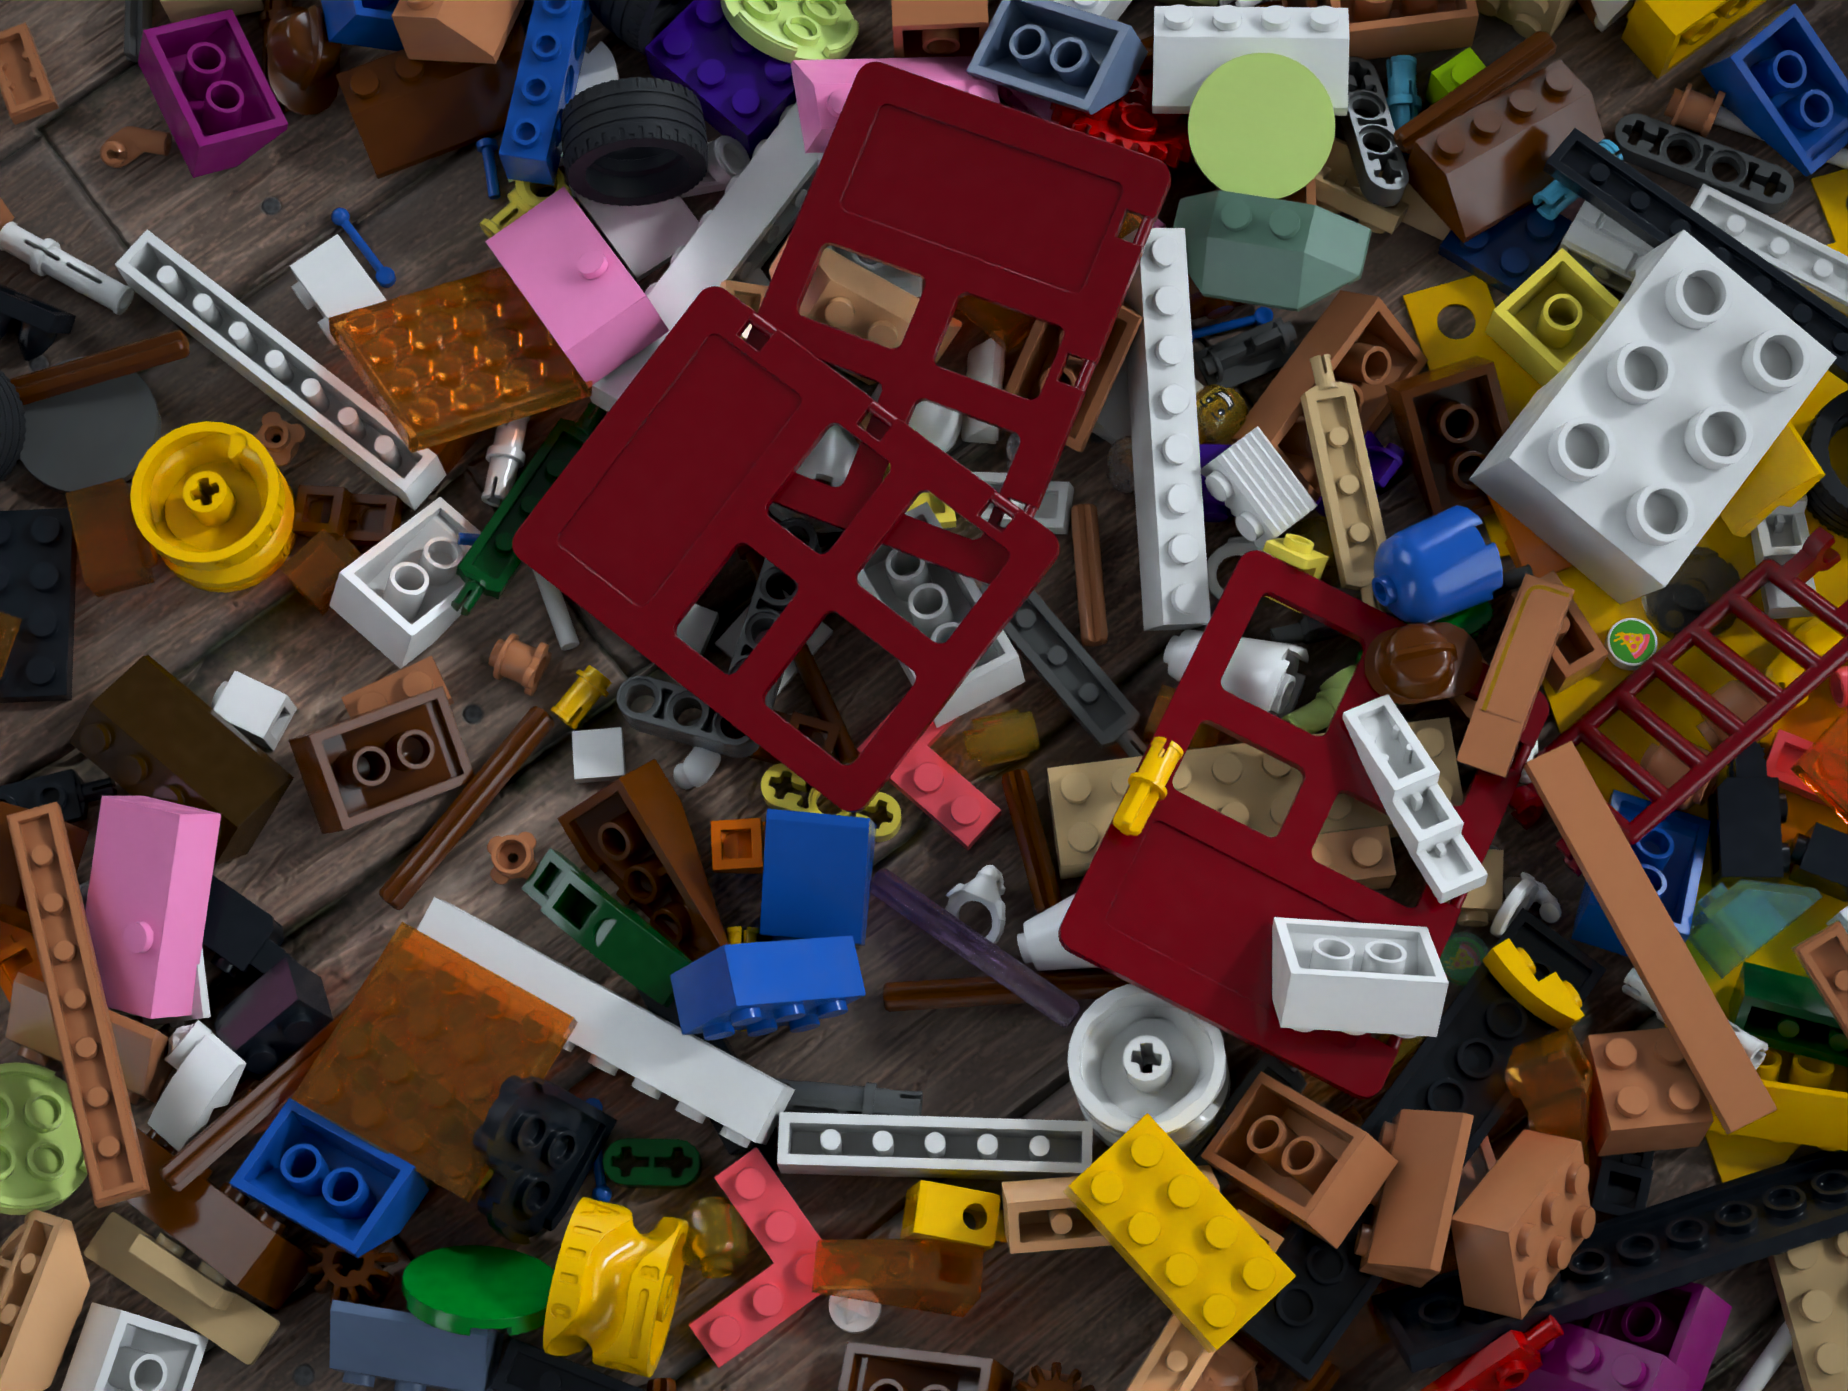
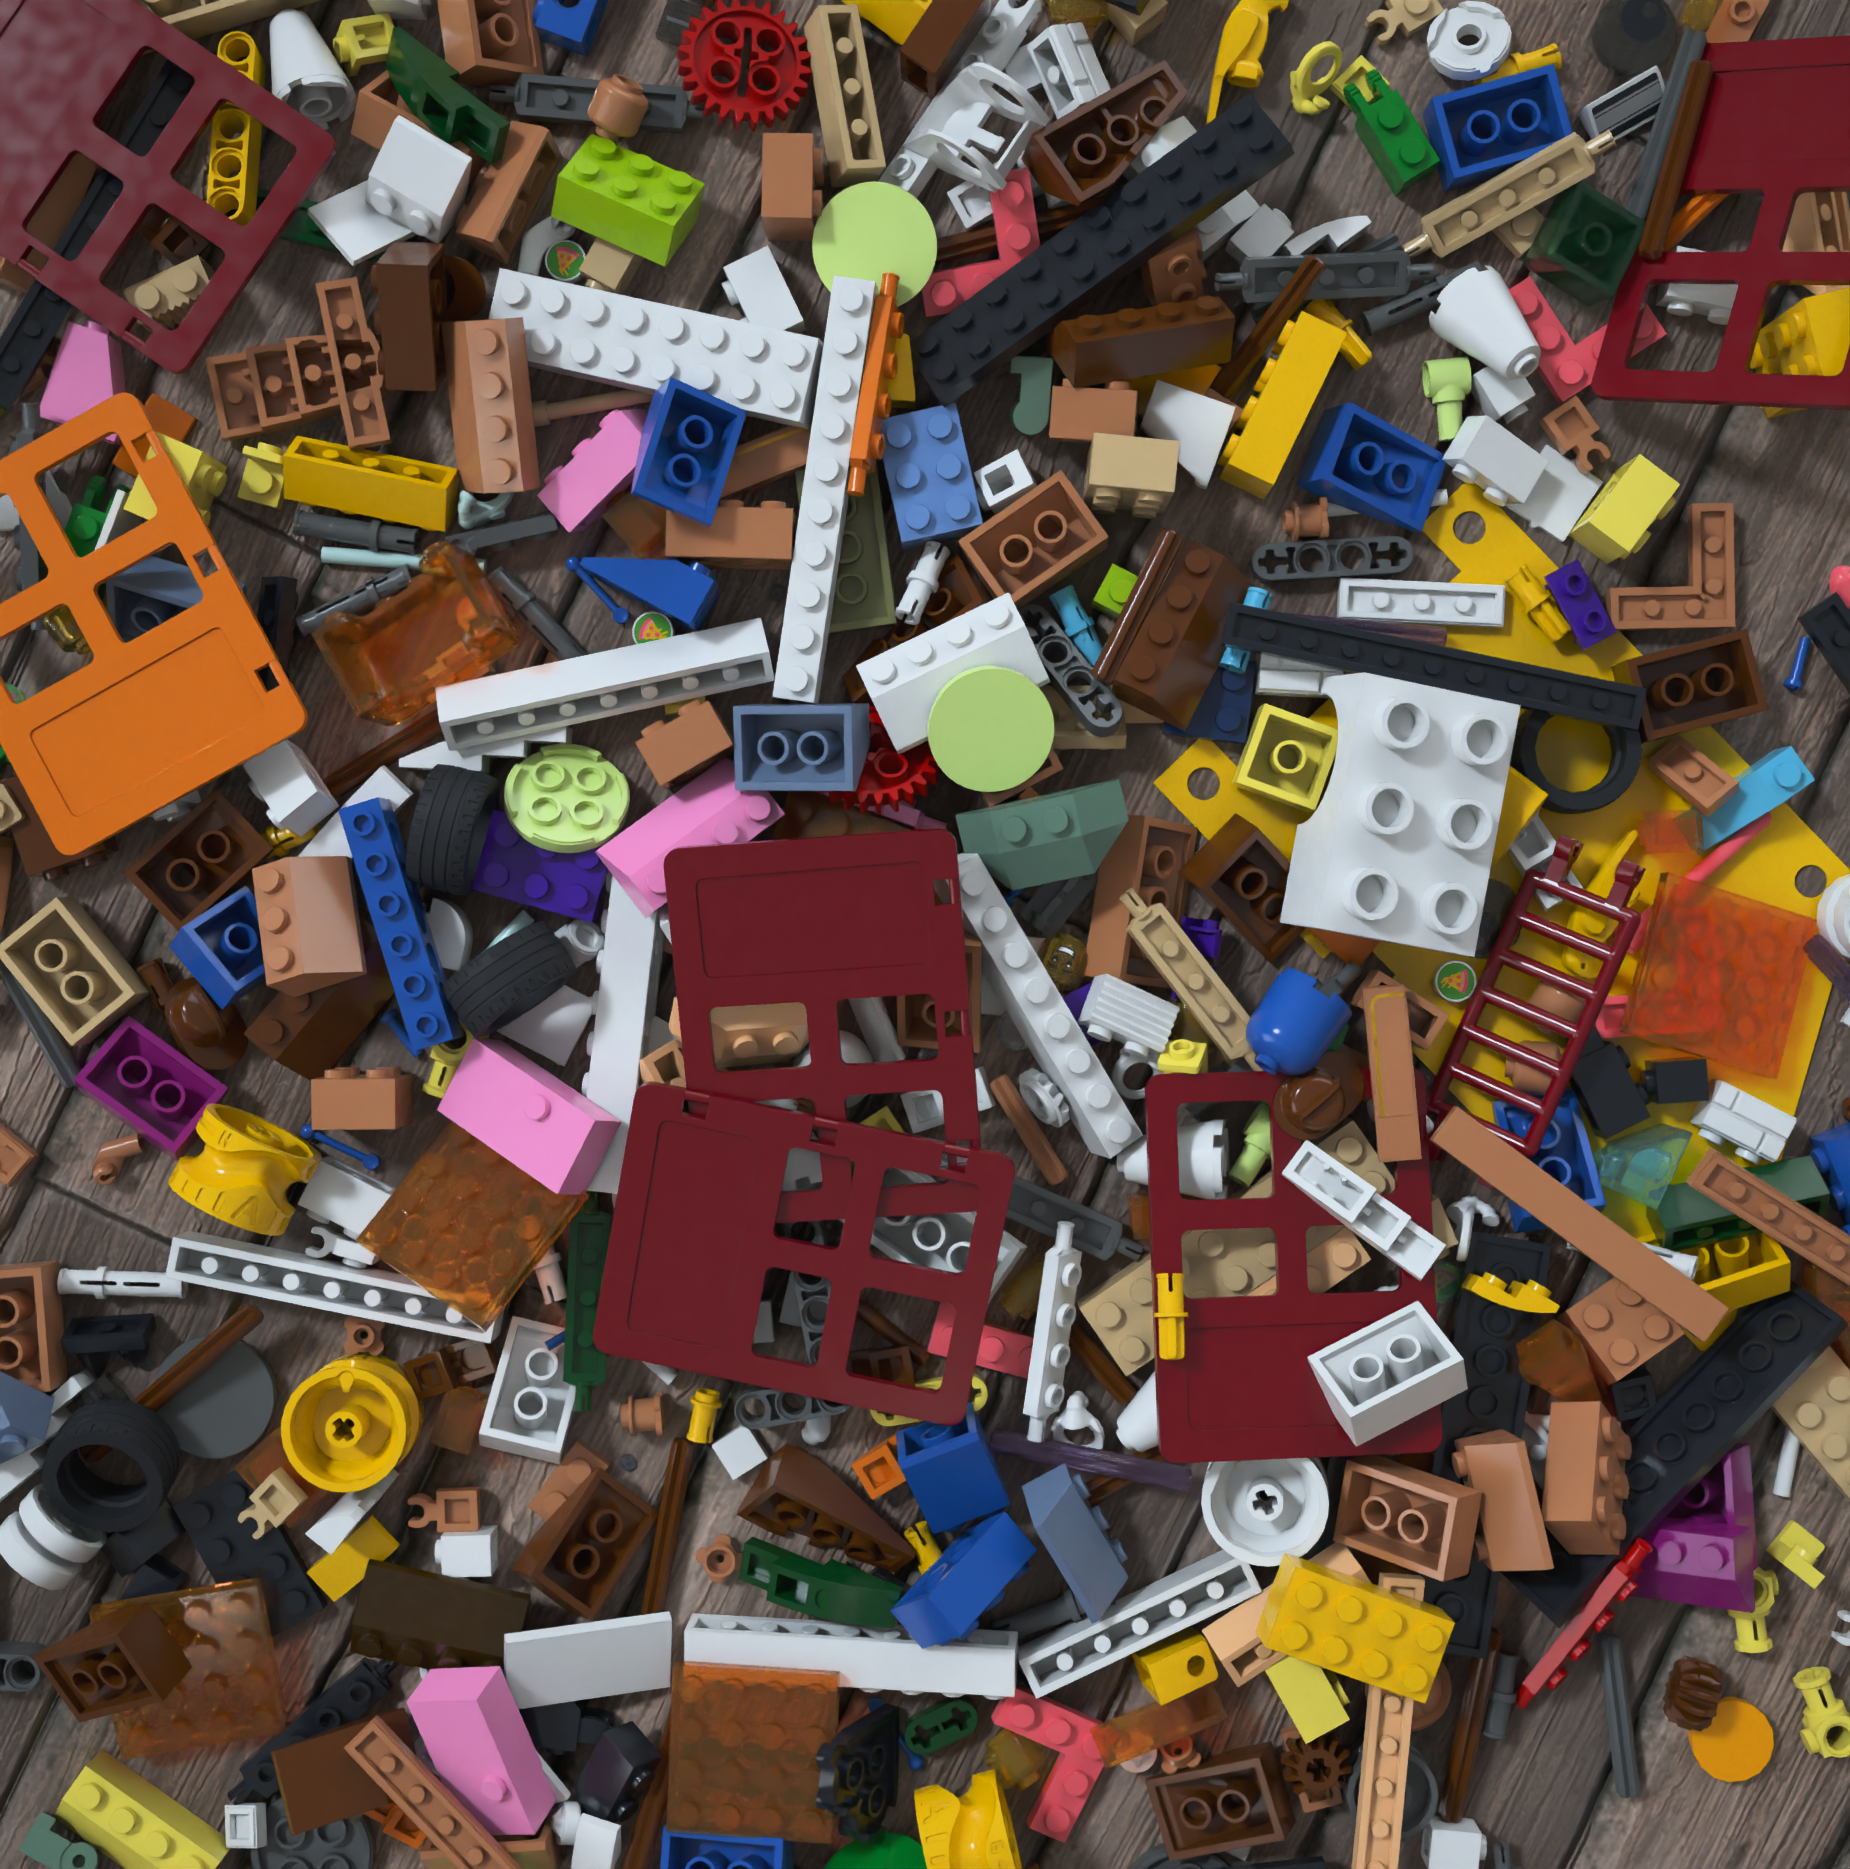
camera: 35 degrees left, 15 degrees up
(88, 542) = (273, 1502): none -> tan plate
(110, 656) = (348, 1563): none -> yellow slope
(142, 596) = (346, 1513): none -> white slope
(260, 658) = (454, 1509): none -> nougat plate
(261, 197) = (244, 1170): none -> yellow piece
(313, 876) = (588, 1660): none -> white tile
(314, 341) = (341, 1245): none -> white plate
(415, 197) = (362, 1101): none -> nougat brick
(902, 1328) = (1188, 1757): none -> nougat plate
(917, 1013) = (1077, 1538): none -> sand blue slope
(1004, 782) = (1052, 1331): none -> white plate
(1086, 1308) = (1310, 1696): none -> light yellow brick
(1122, 540) = (1043, 1098): none -> white gear

